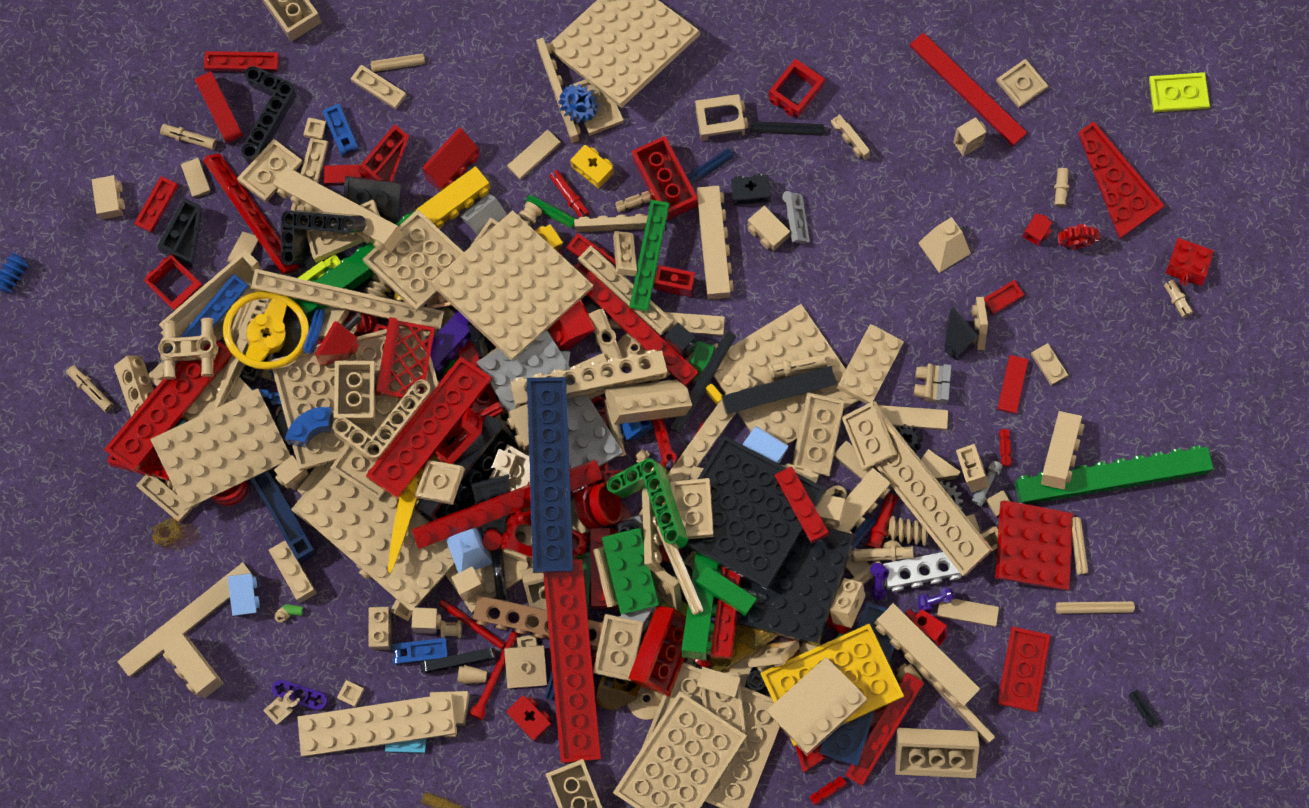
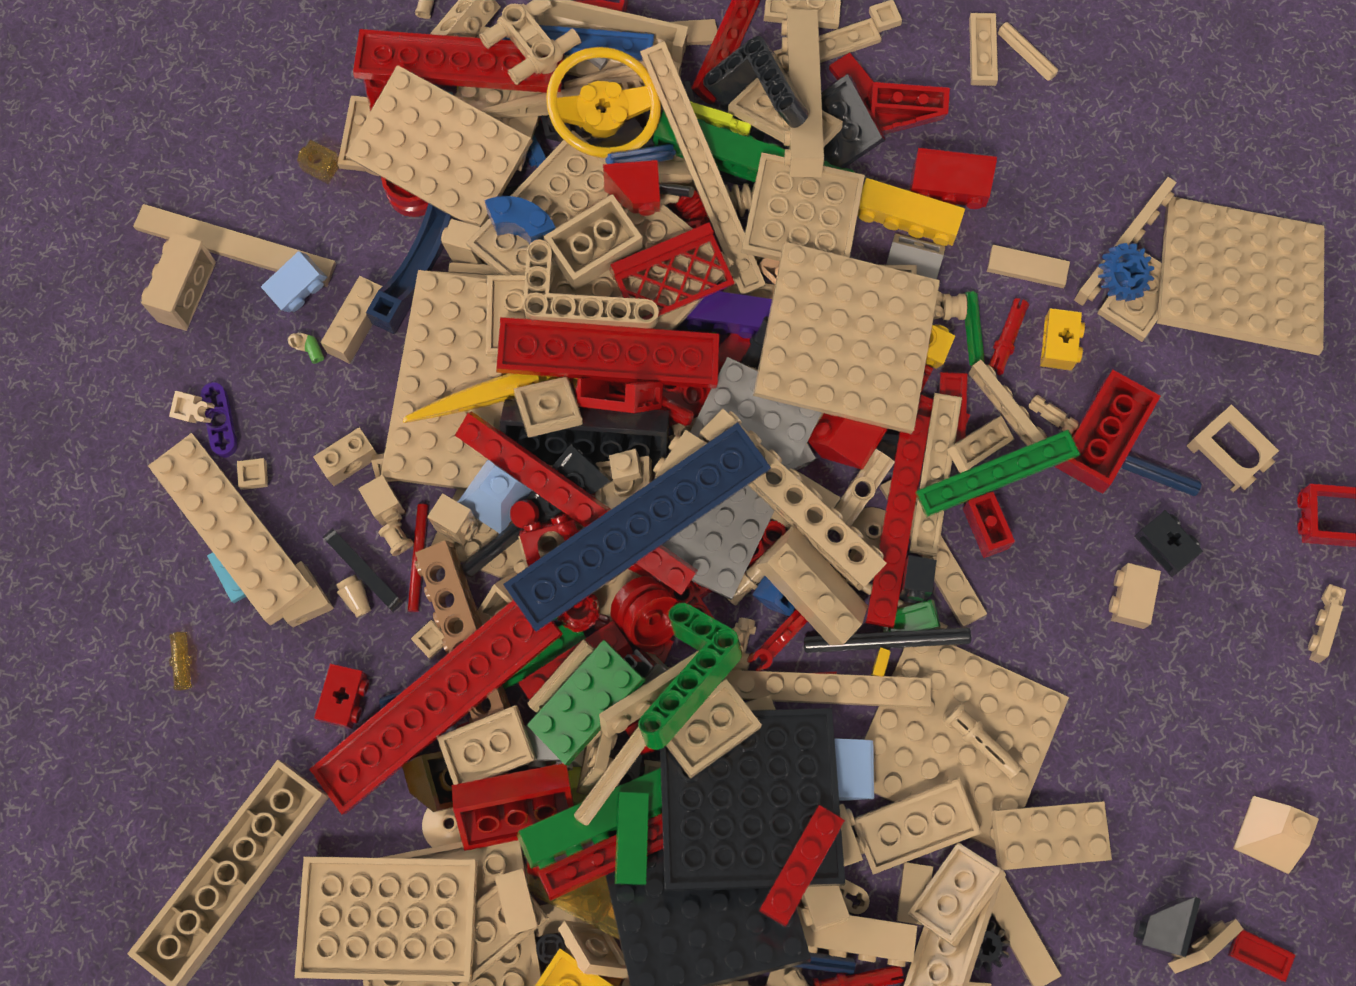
camera: 55 degrees right, 0 degrees up
(340, 129) = (904, 41): blue plate -> none
(420, 651) = (349, 520): blue plate -> none
(478, 710) = (316, 631): red piece -> none
(525, 666) = (402, 652): tan plate -> none
(713, 242) = (1070, 540): tan brick -> none
(778, 390) = (938, 740): black tile -> none
(787, 128) = (1280, 538): black axle -> none
(796, 217) = (1175, 621): light grey plate -> none
(936, 383) = (1085, 938): tan hips -> none

